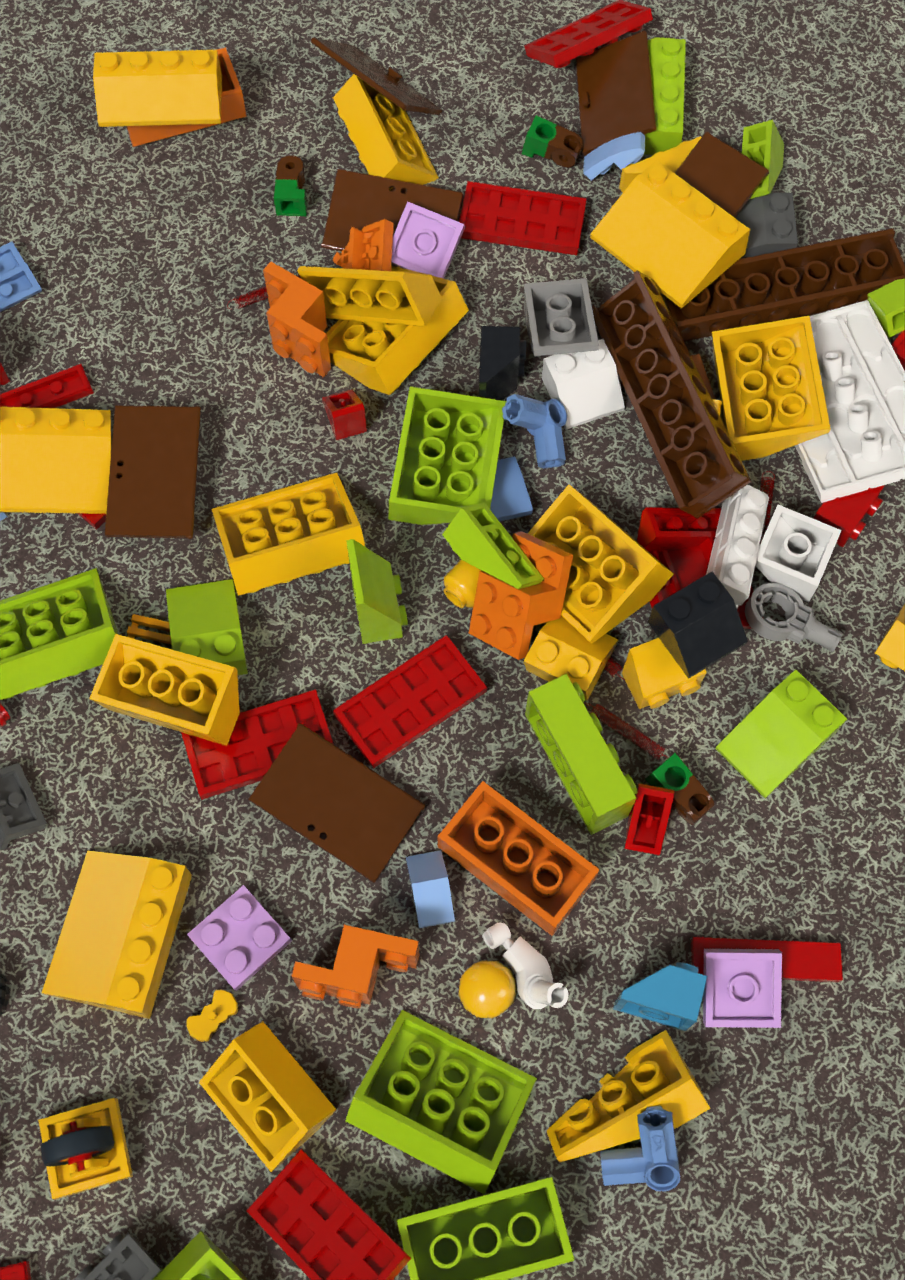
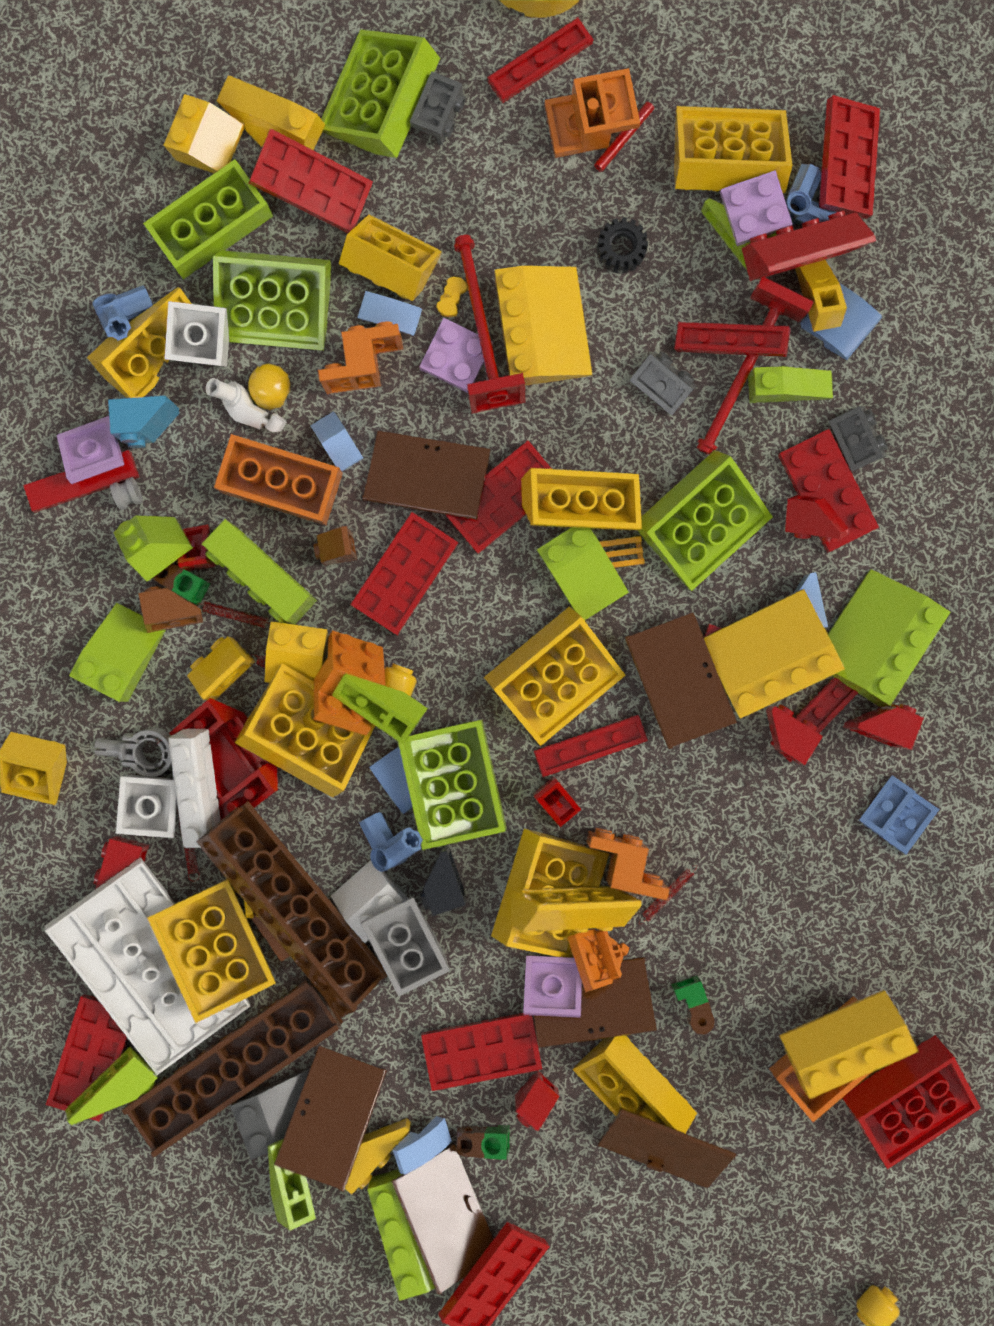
camera: 160 degrees right, 20 degrees up
(65, 377) = (791, 737): none -> red slope
(84, 1148) = (496, 179): yellow plate -> none
(127, 33) = (911, 1101): none -> red slope
(208, 863) = (495, 391): none -> red tile
(282, 453) = (590, 745): none -> red tile
(299, 1020) = (380, 308): none -> light blue slope
(375, 595) = (460, 640): lime slope -> none
(478, 754) = (335, 546): none -> dark orange slope
(485, 153) = (535, 1100): none -> red slope
(555, 1076) = (197, 334): none -> white slope
(671, 234) = (341, 1068): yellow slope -> none
(698, 624) = (196, 694): black slope -> none
(698, 837) = (151, 543): none -> lime slope
(709, 759) = (167, 610): none -> dark orange slope
(713, 918) = (126, 493): none -> light grey wheel

